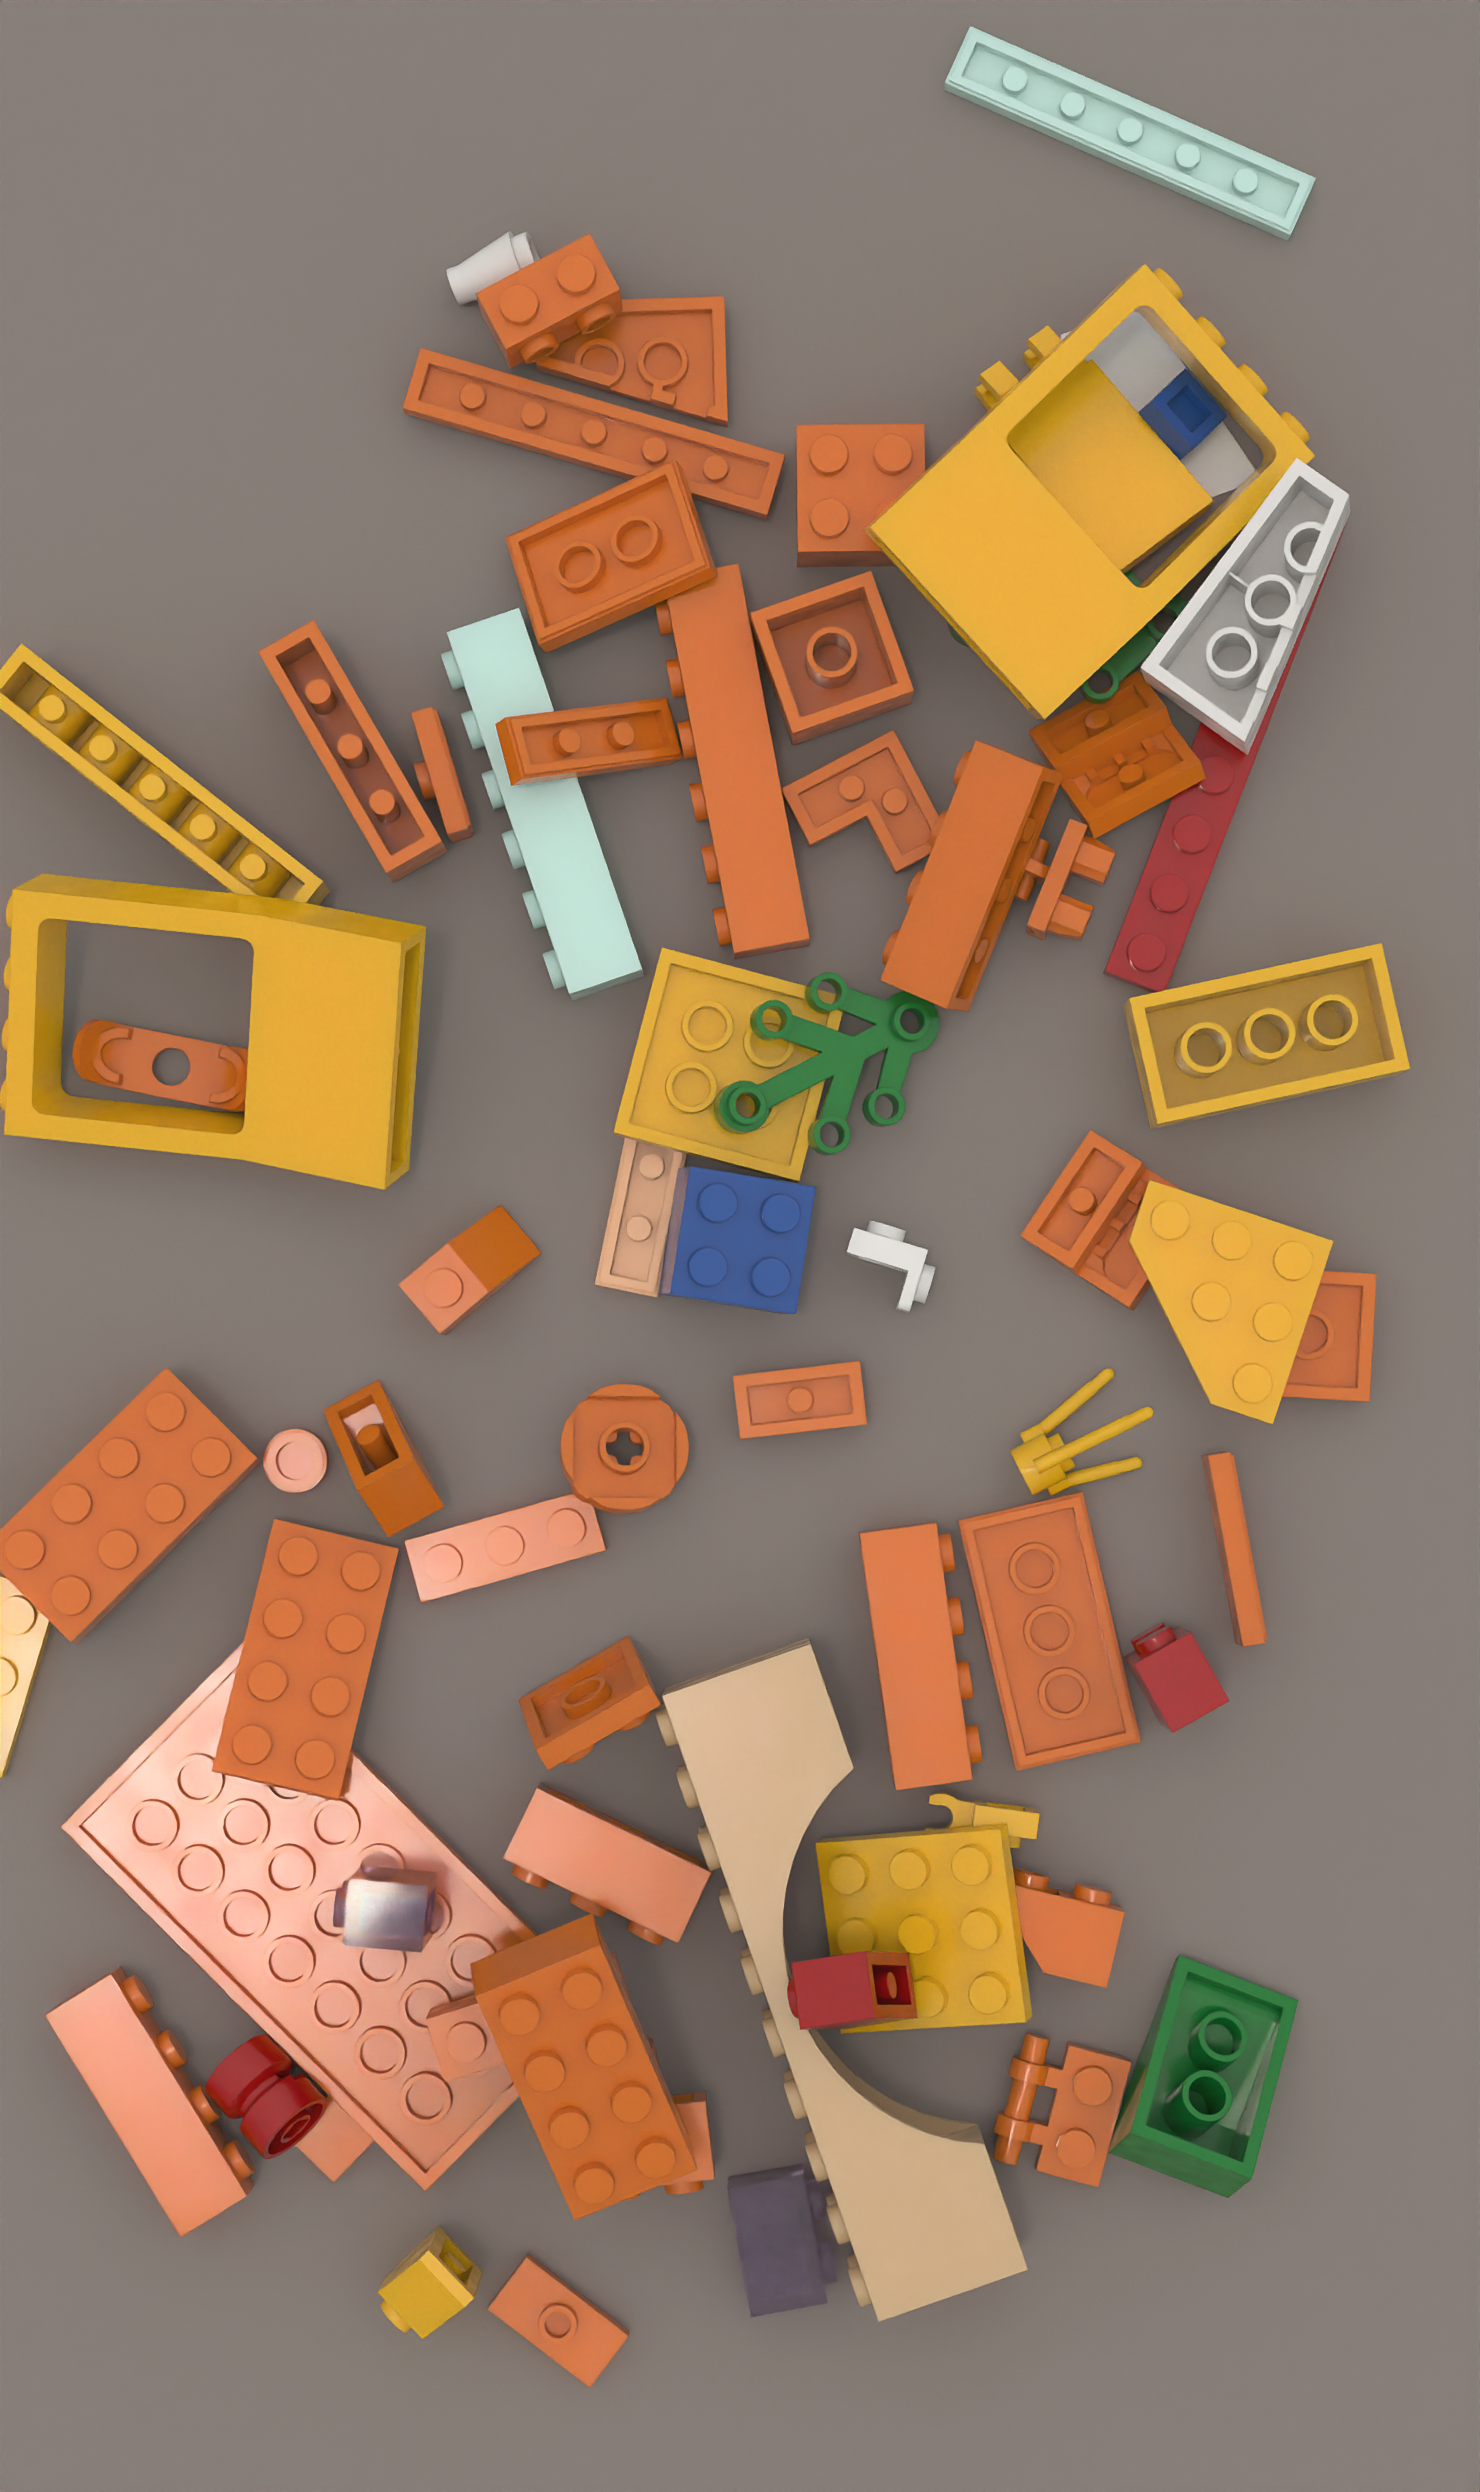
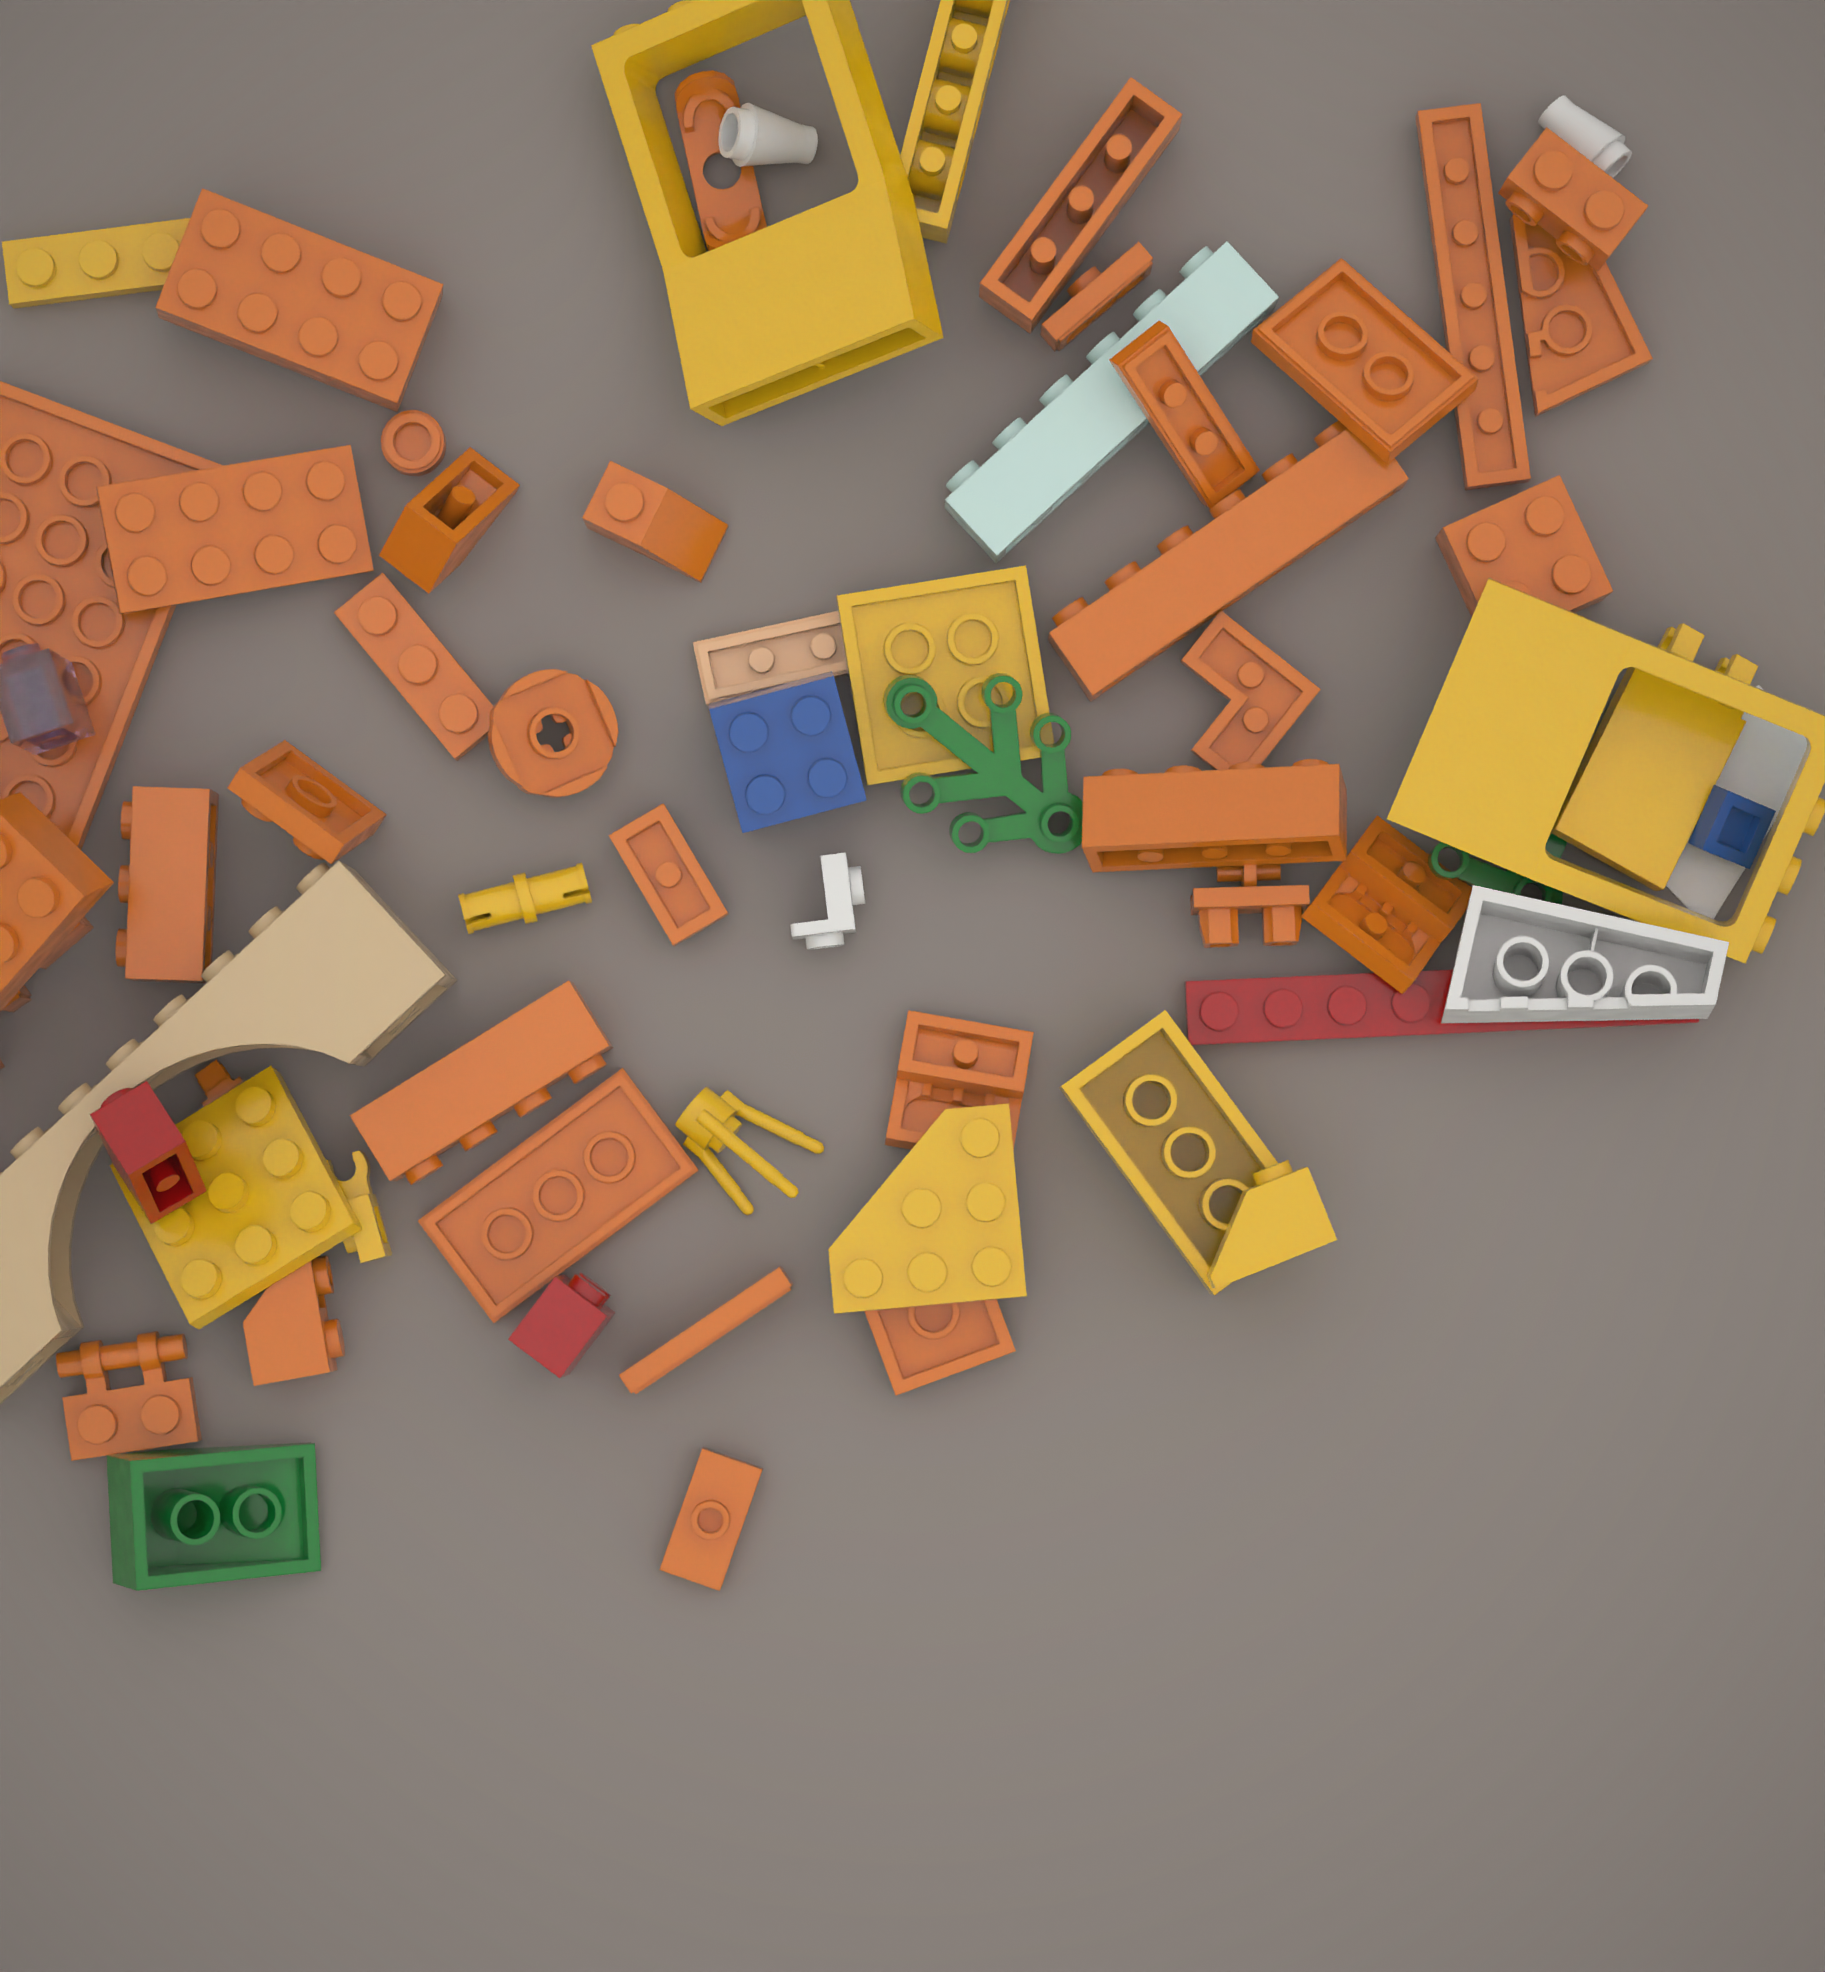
camera: 65 degrees right, 0 degrees up
(159, 1015) = (764, 138): none -> white cone
(763, 1541) = (525, 898): none -> yellow pin
(806, 1900) = (216, 1081): none -> orange piece
(831, 658) = (1360, 602): orange brick -> none
(1372, 987) = (1271, 1224): none -> yellow slope
(1406, 1620) = (711, 1519): none -> orange plate

